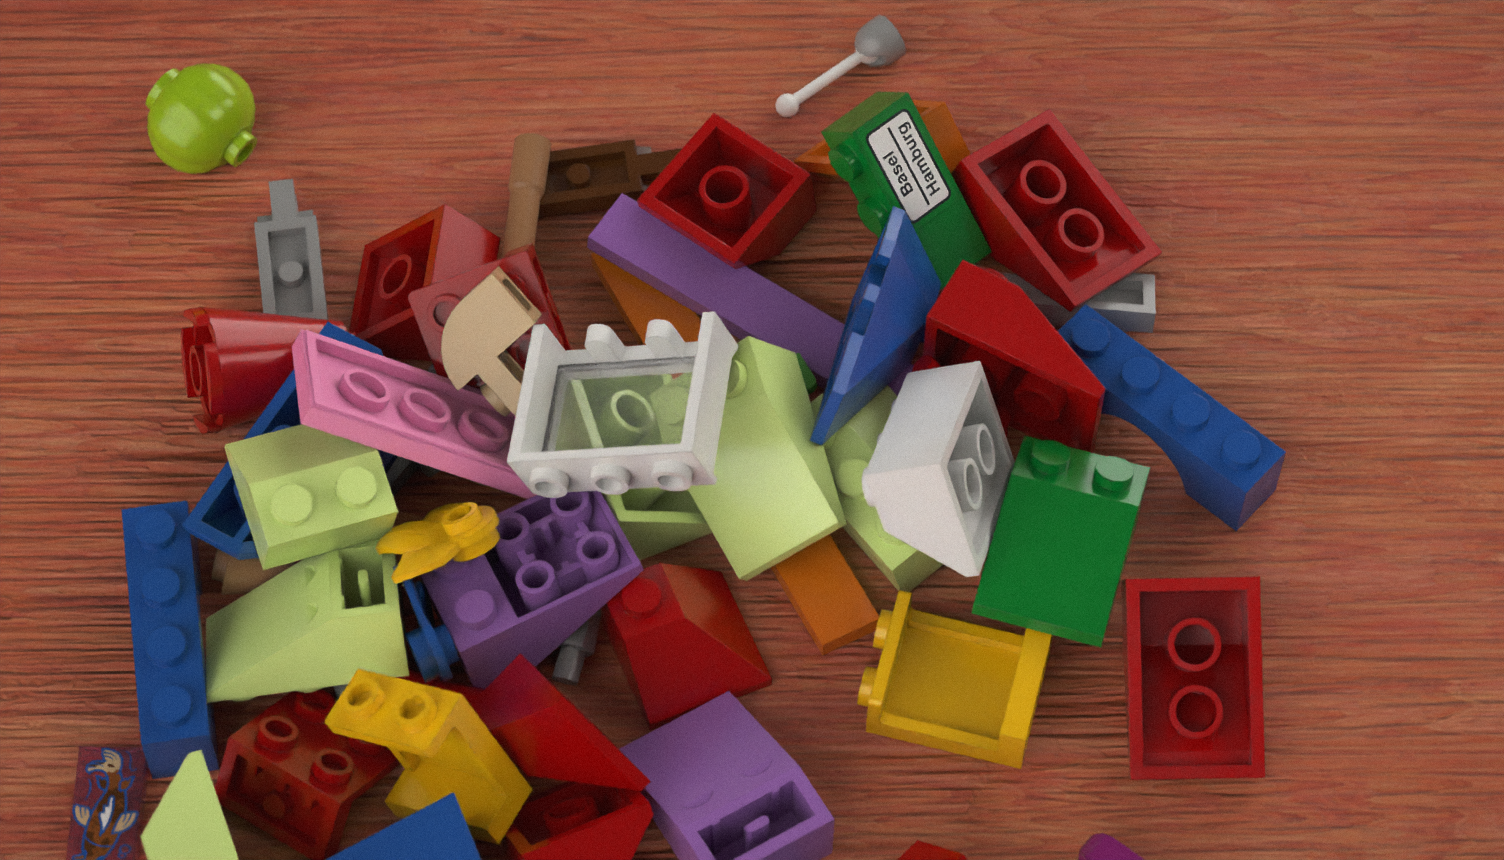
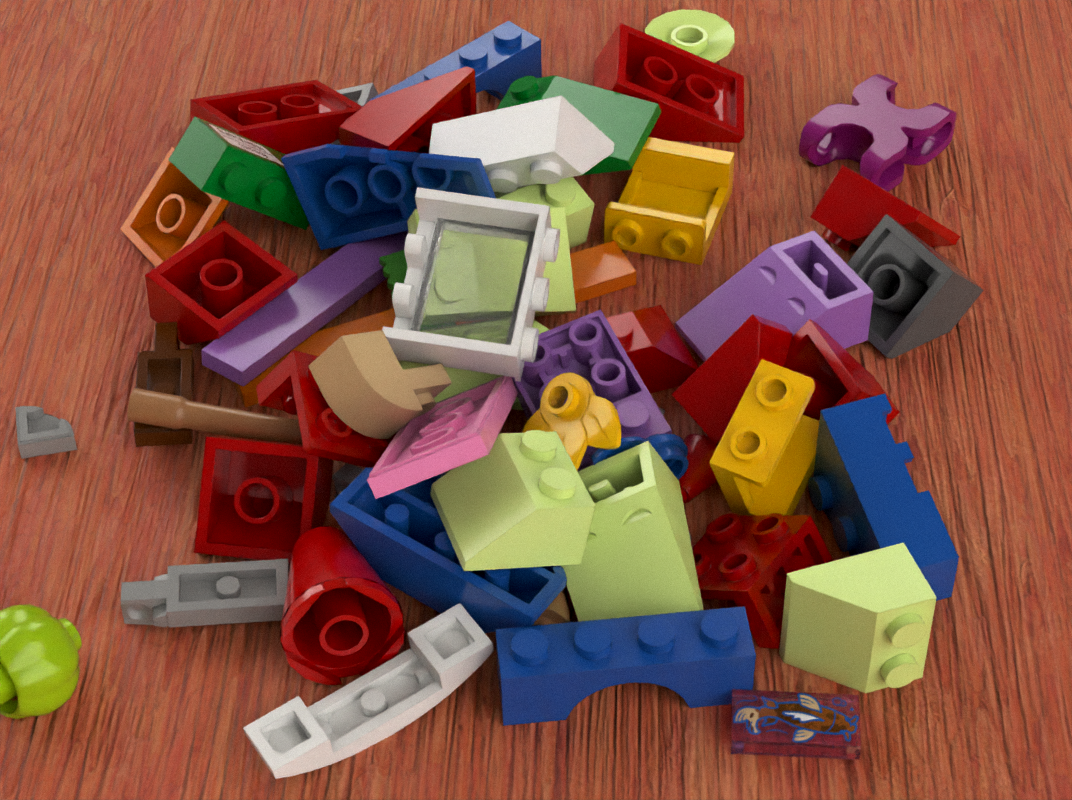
camera: 85 degrees left, 15 degrees down
(140, 409) = (376, 704): none -> white slope
(539, 82) = (42, 433): none -> light grey tile
(875, 45) = (71, 223): hinge -> none
(1334, 675) = (694, 32): none -> yellowish green dish

